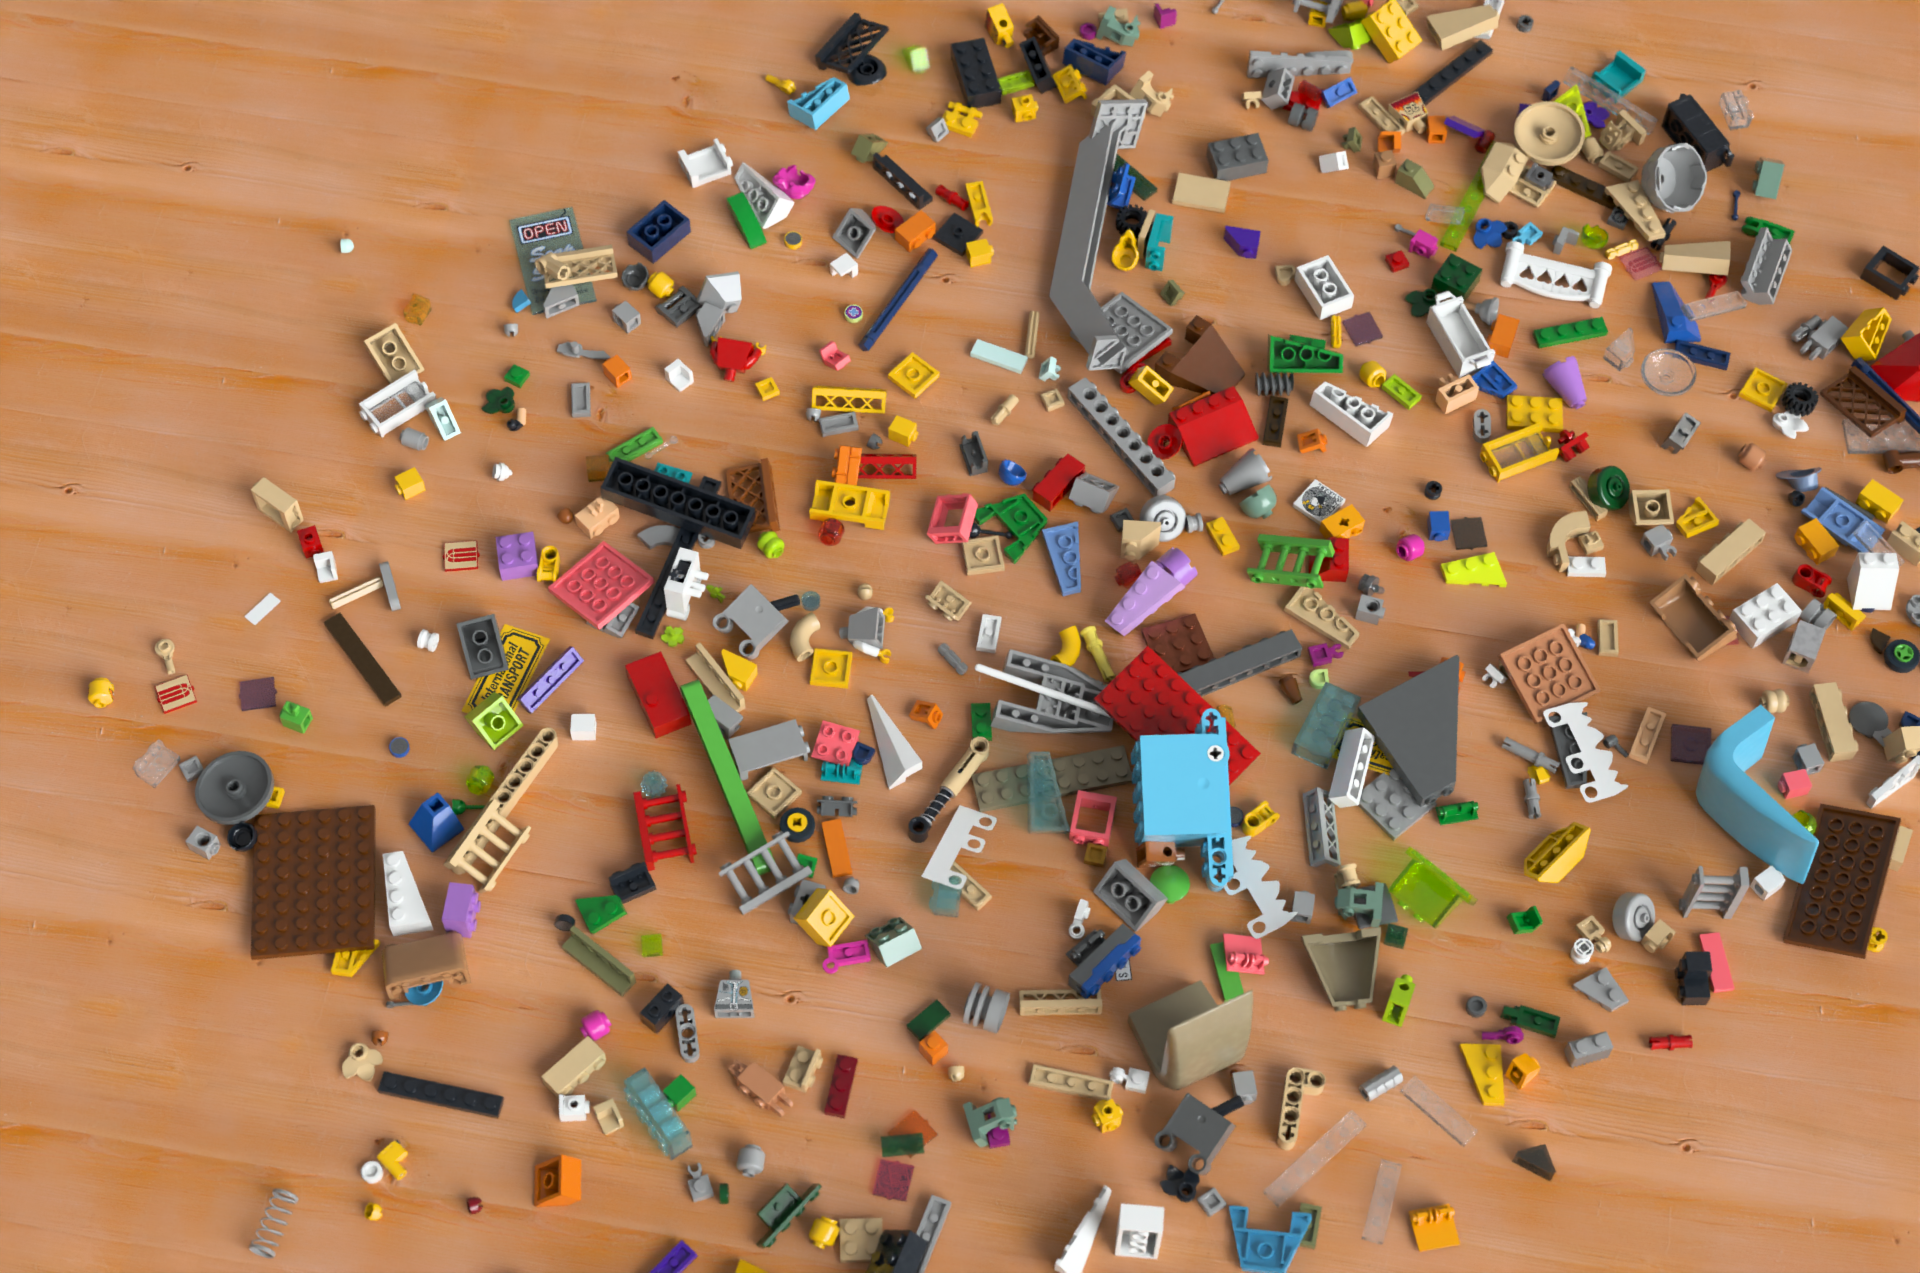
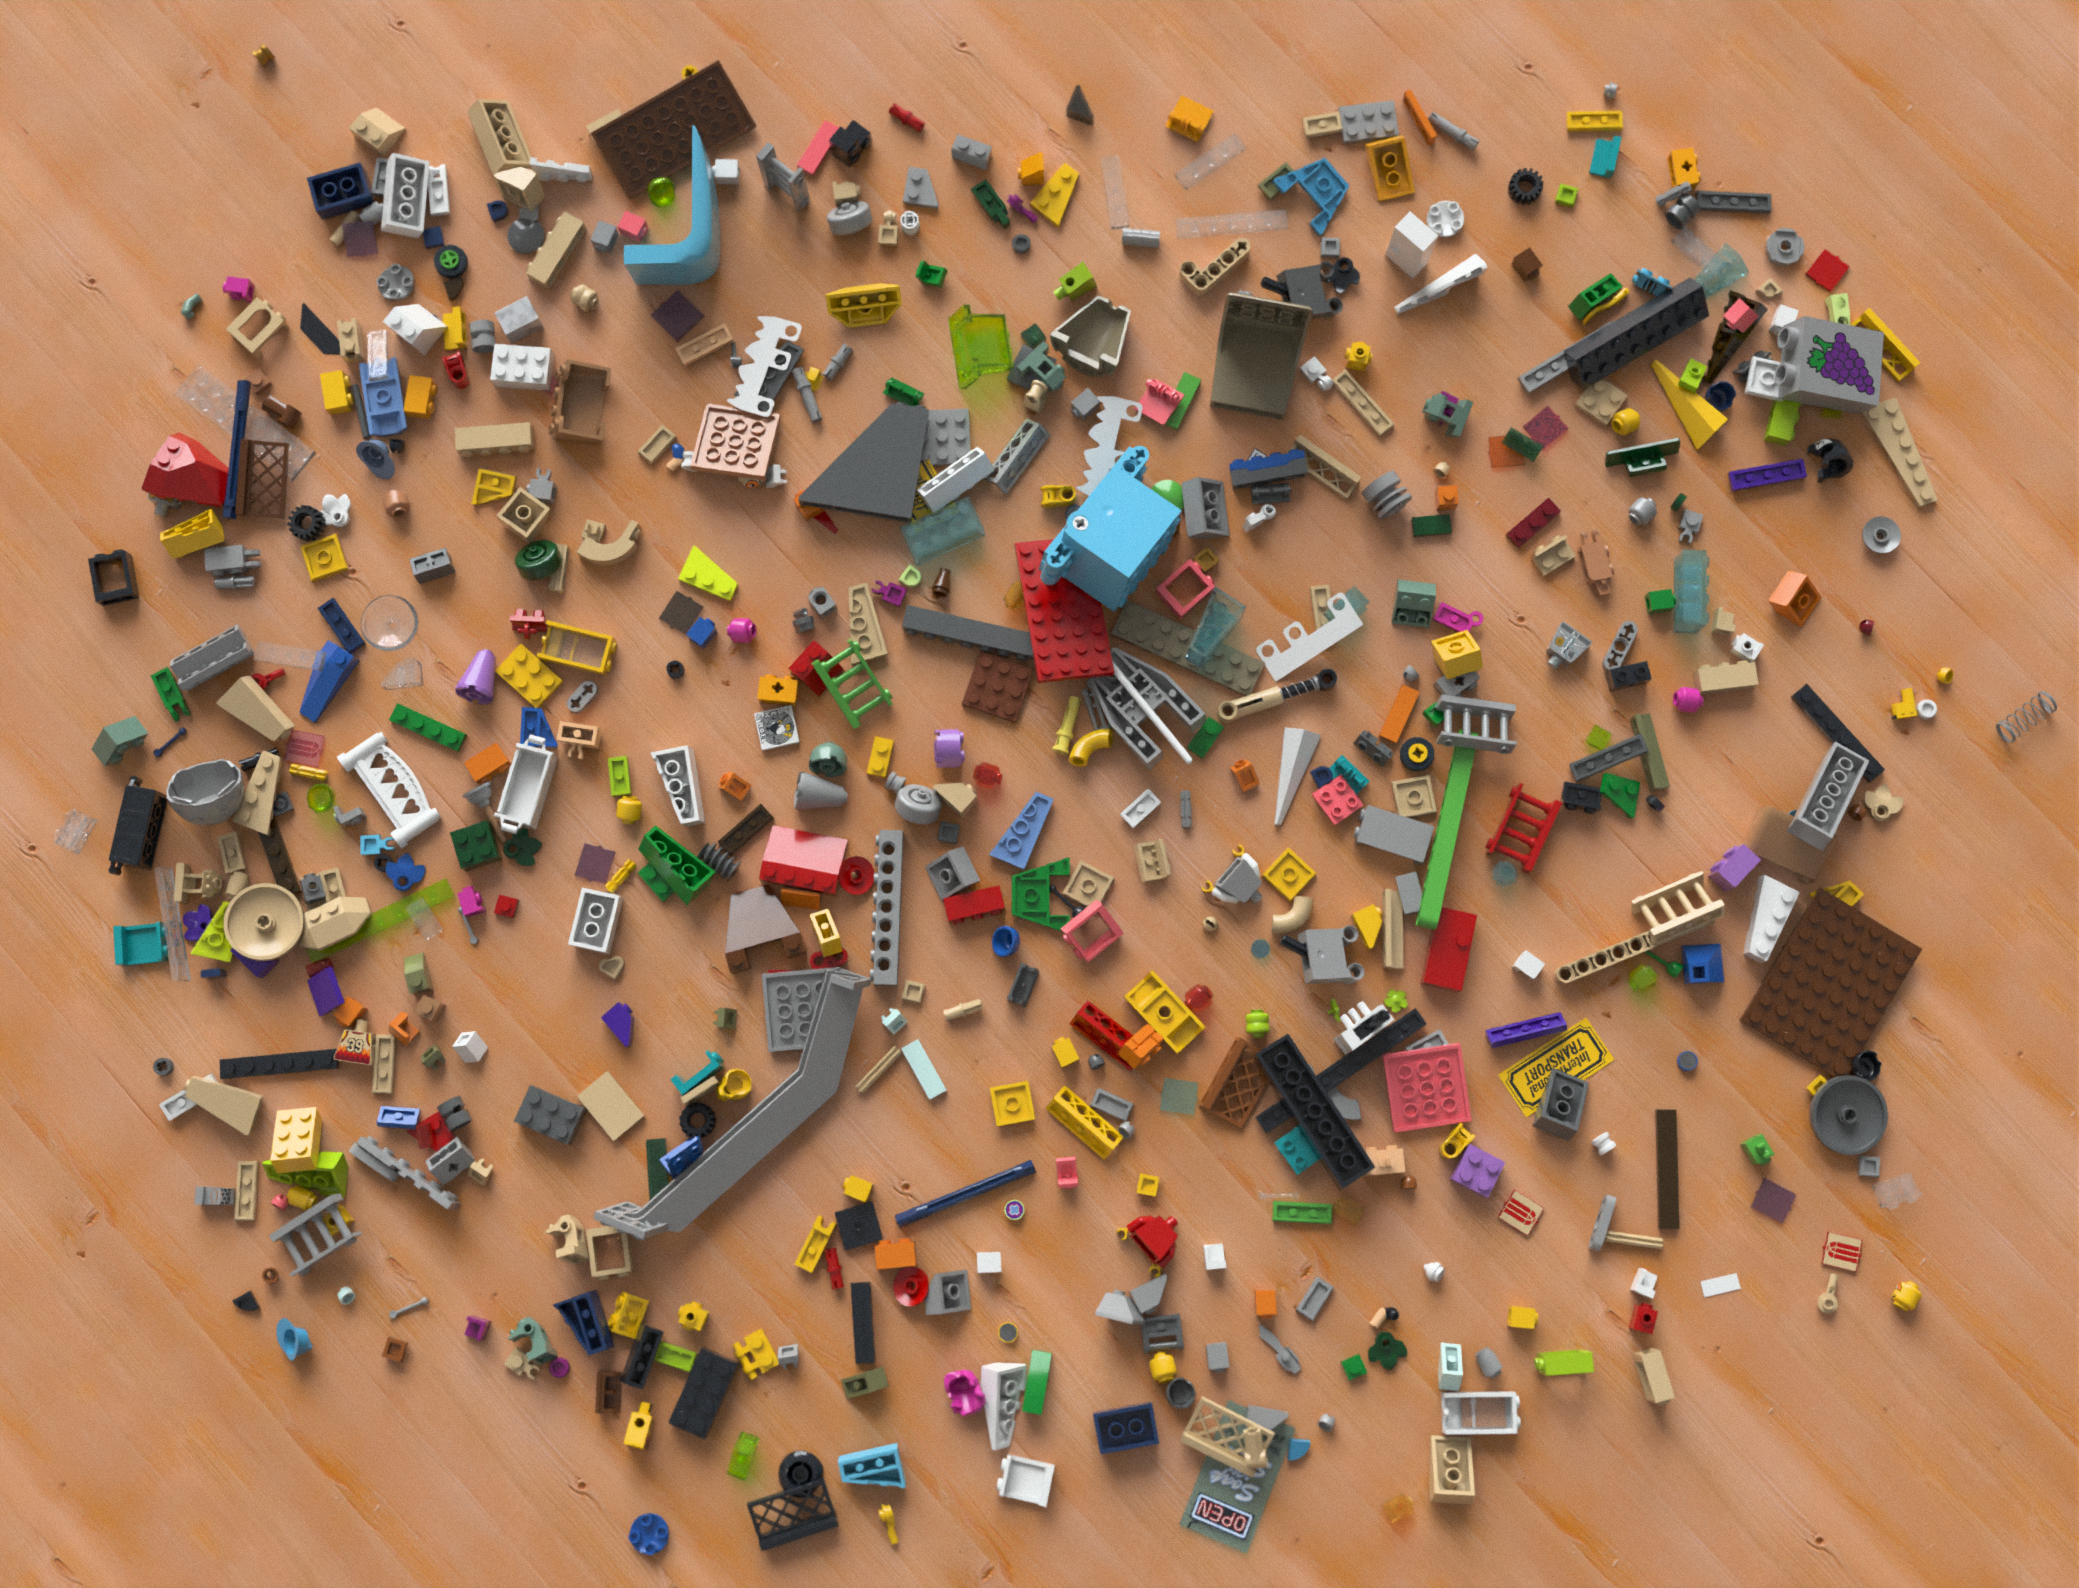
camera: 140 degrees left, 20 degrees up
(200, 836) = (1908, 1086): light grey brick -> none
(354, 469) = (1564, 1362): none -> lime window
(416, 1011) = (1828, 796): none -> light grey brick
(494, 720) = (1597, 1025): lime slope -> none
(630, 928) = (1609, 757): none -> dark grey tile
(791, 463) = (1179, 1096): none -> clear light blue piece
(1143, 598) = (995, 734): lavender wedge -> none
(1586, 567) = (616, 513): white plate -> none

